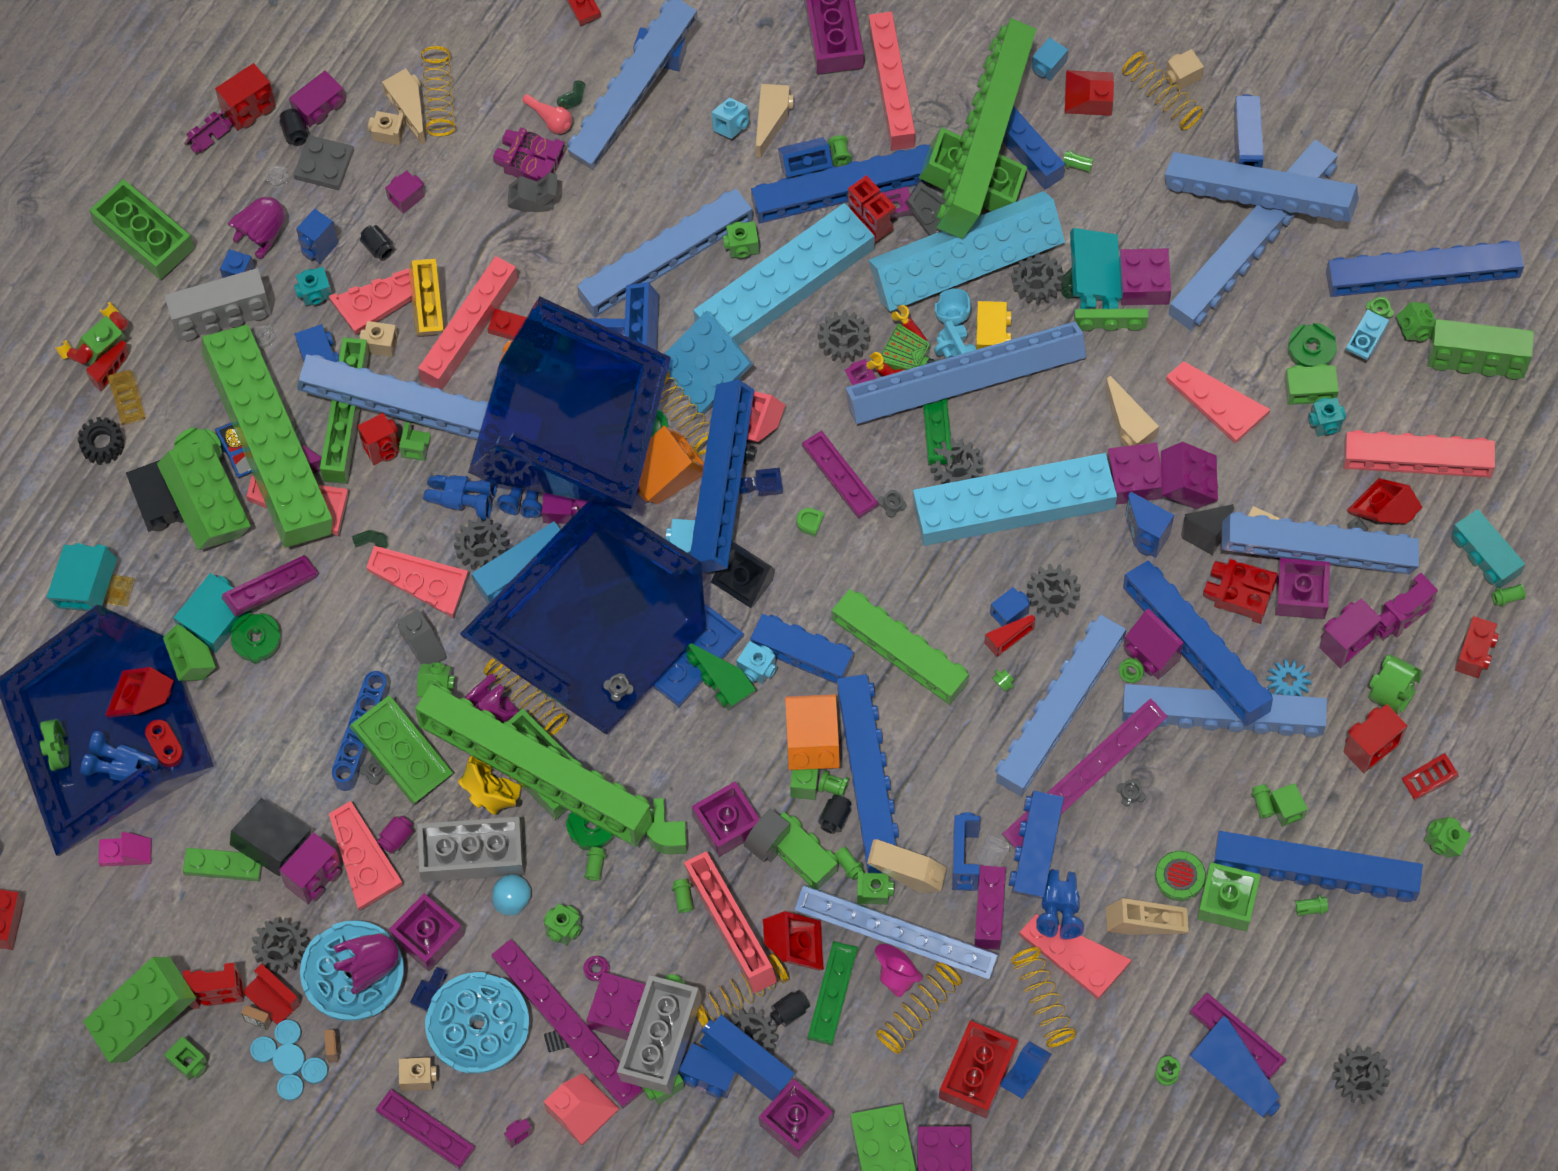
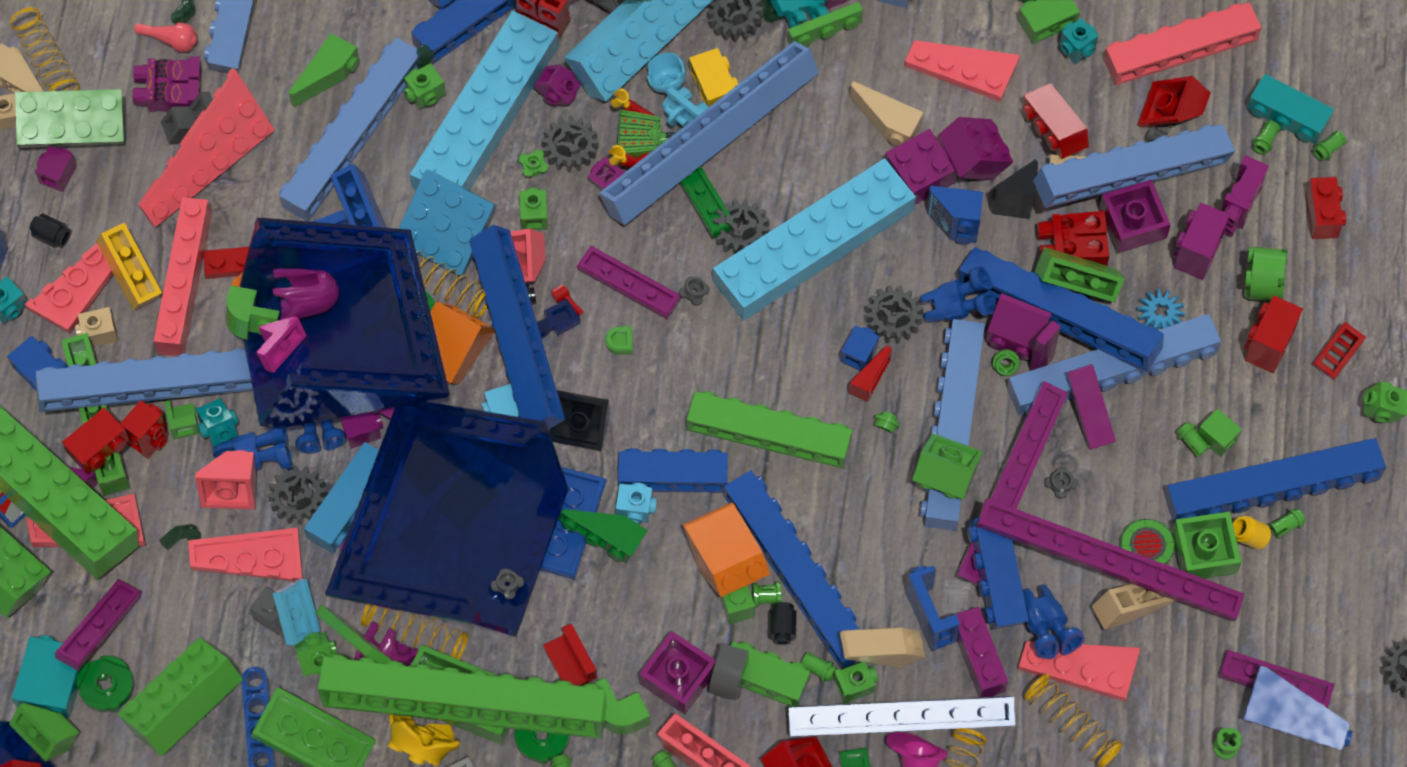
camera: 25 degrees left, 0 degrees up
(309, 671) = (180, 696): none -> bright green brick
(332, 432) = (95, 441): none -> red brick
(428, 509) = (228, 481): none -> coral slope
(432, 153) = (69, 118): none -> brick
(433, 639) = (296, 611): none -> medium azure plate
(441, 456) = (217, 422): none -> teal brick
(469, 677) = (353, 636): none -> bright green tile
(500, 375) = (242, 313): none -> bright green brick
(519, 408) = (280, 341): none -> dark pink slope
(543, 220) = (212, 144): none -> coral wing
(560, 380) = (310, 292): none -> magenta hair
(644, 771) = (571, 658): none -> red panel
(666, 193) = (326, 69): none -> bright green slope
(753, 214) = (426, 56): none -> clear green arm
(777, 461) = (561, 293): none -> red hand
(786, 380) = (533, 209): none -> bright green brick
(809, 346) = (533, 170): none -> bright green plate
(855, 282) = (557, 85): none -> magenta brick
(1033, 737) = (947, 466): none -> bright green slope
(1106, 598) = (951, 301): none -> blue piece
(1136, 873) = (1110, 559): none -> magenta plate
(1166, 669) = (1045, 346): none -> magenta tile
(1184, 737) = (1090, 406): none -> magenta tile
(1227, 619) = (1079, 274): none -> bright green brick
(1270, 478) = (1055, 121): none -> brick
(1274, 900) = (1251, 532): none -> yellow brick
(1449, 569) = (1263, 143): none -> bright green pin

